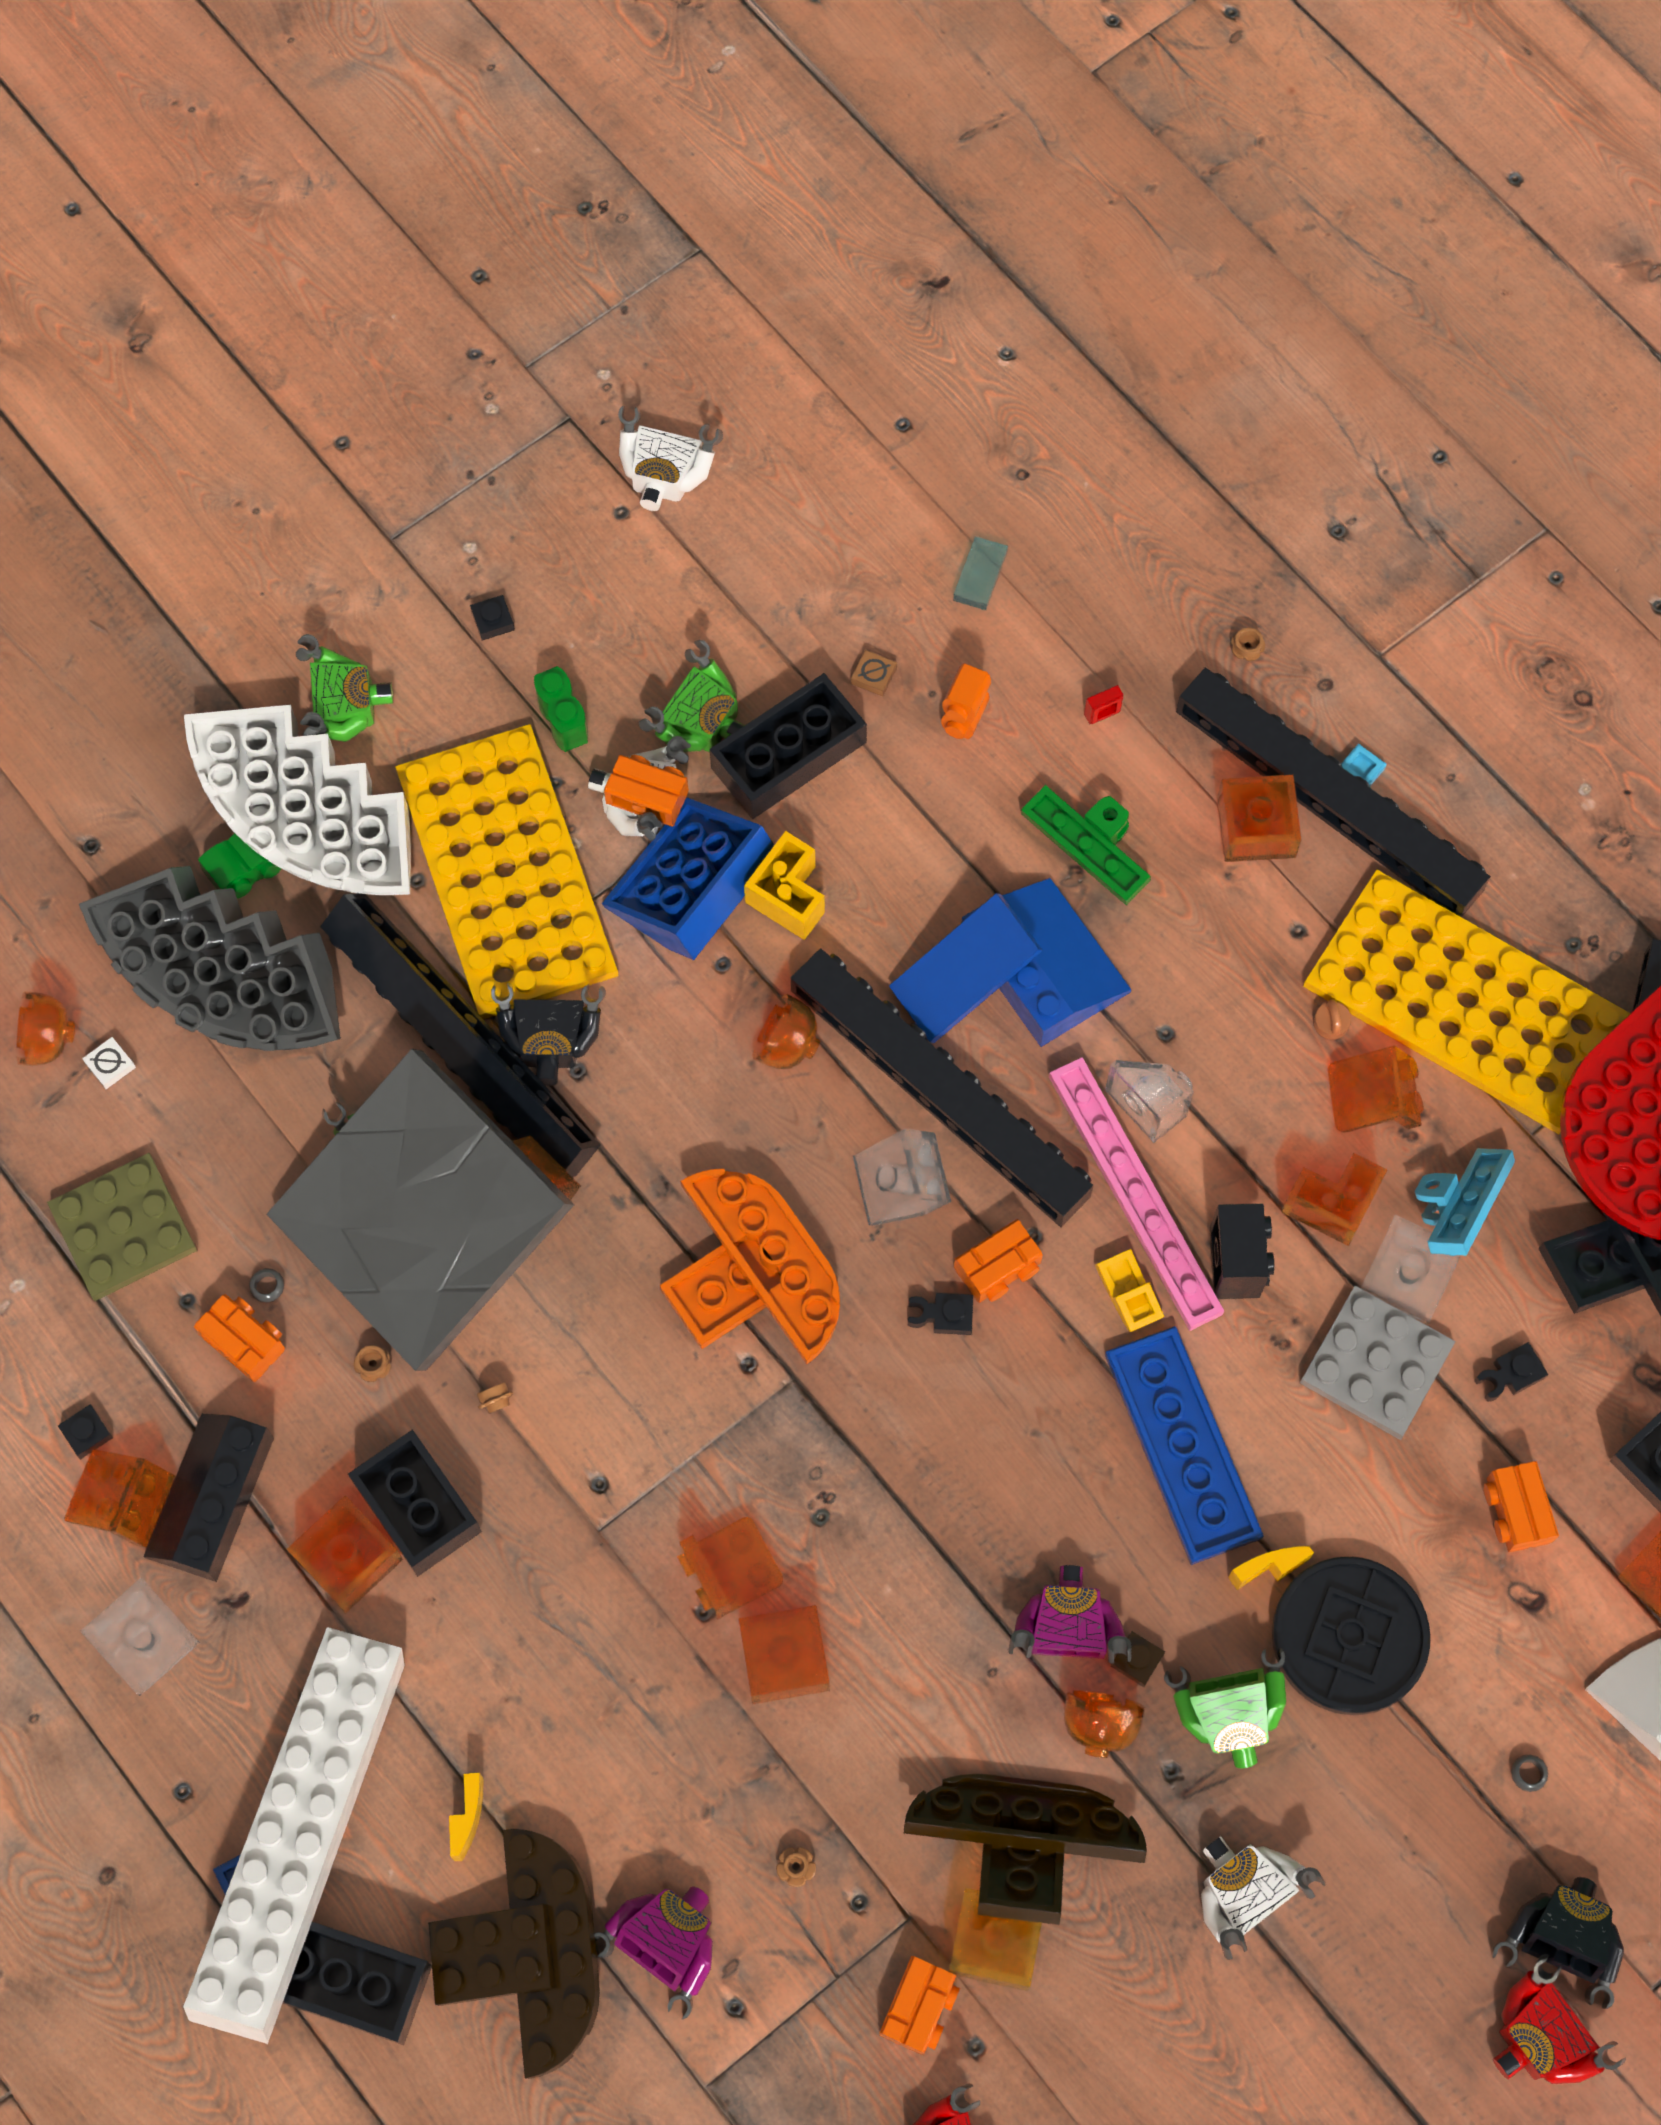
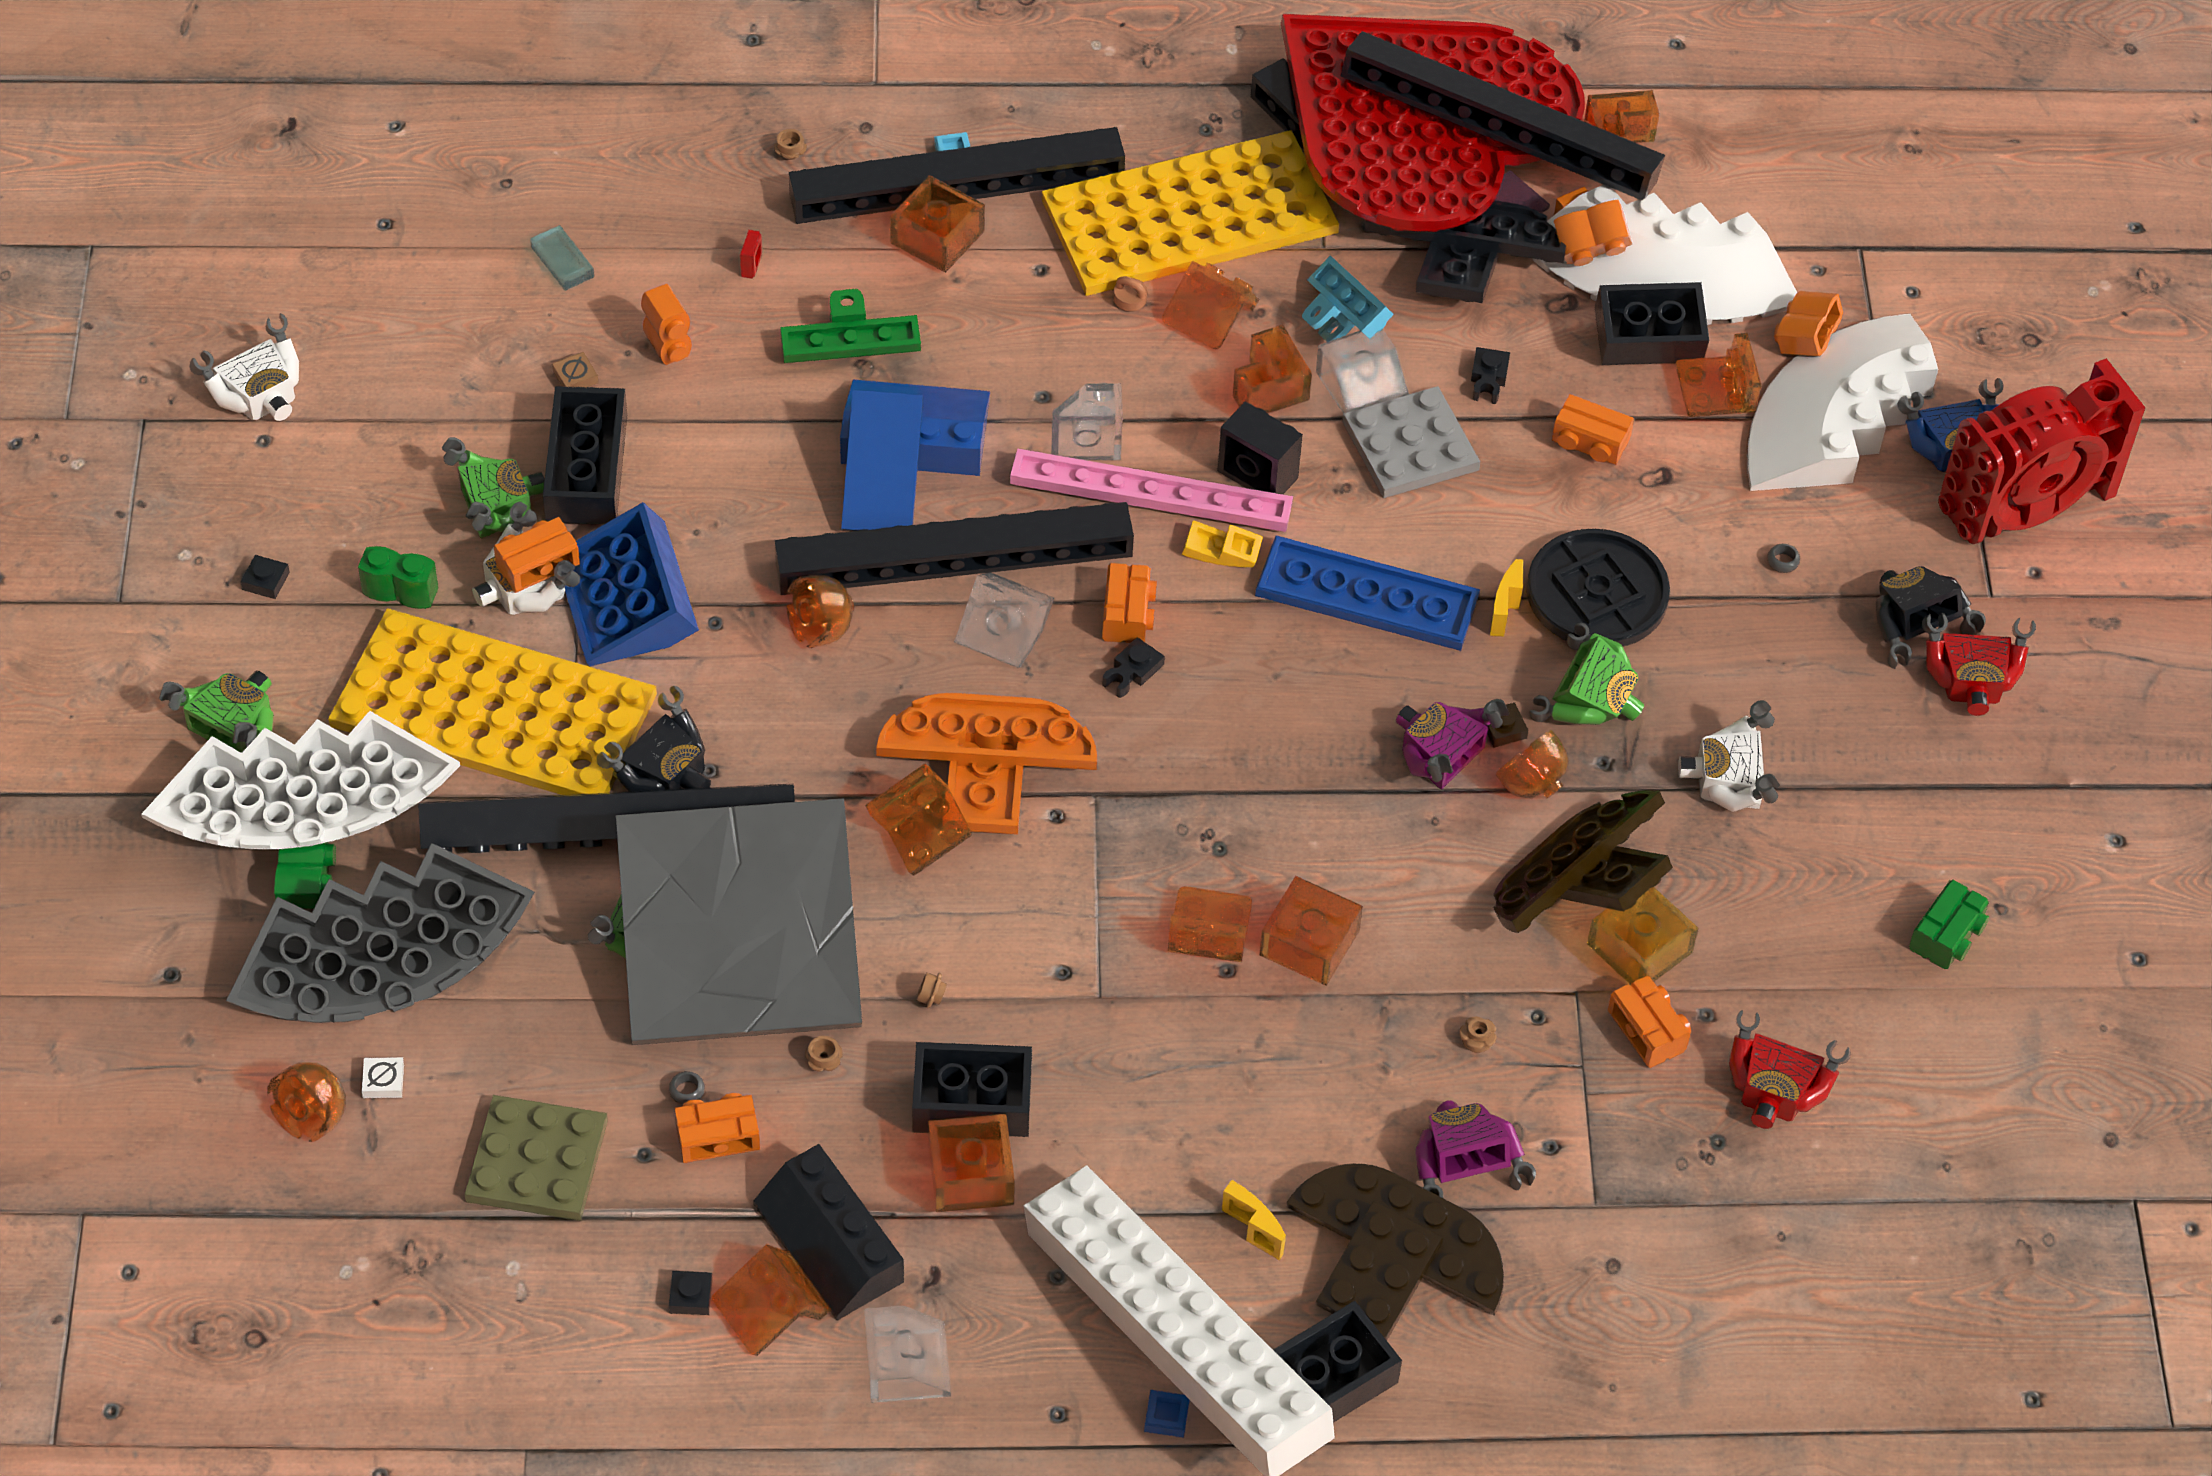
camera: 55 degrees left, 15 degrees down
(643, 1269) = (920, 818): none -> clear orange bracket
(780, 890) = (700, 536): yellow brick -> none

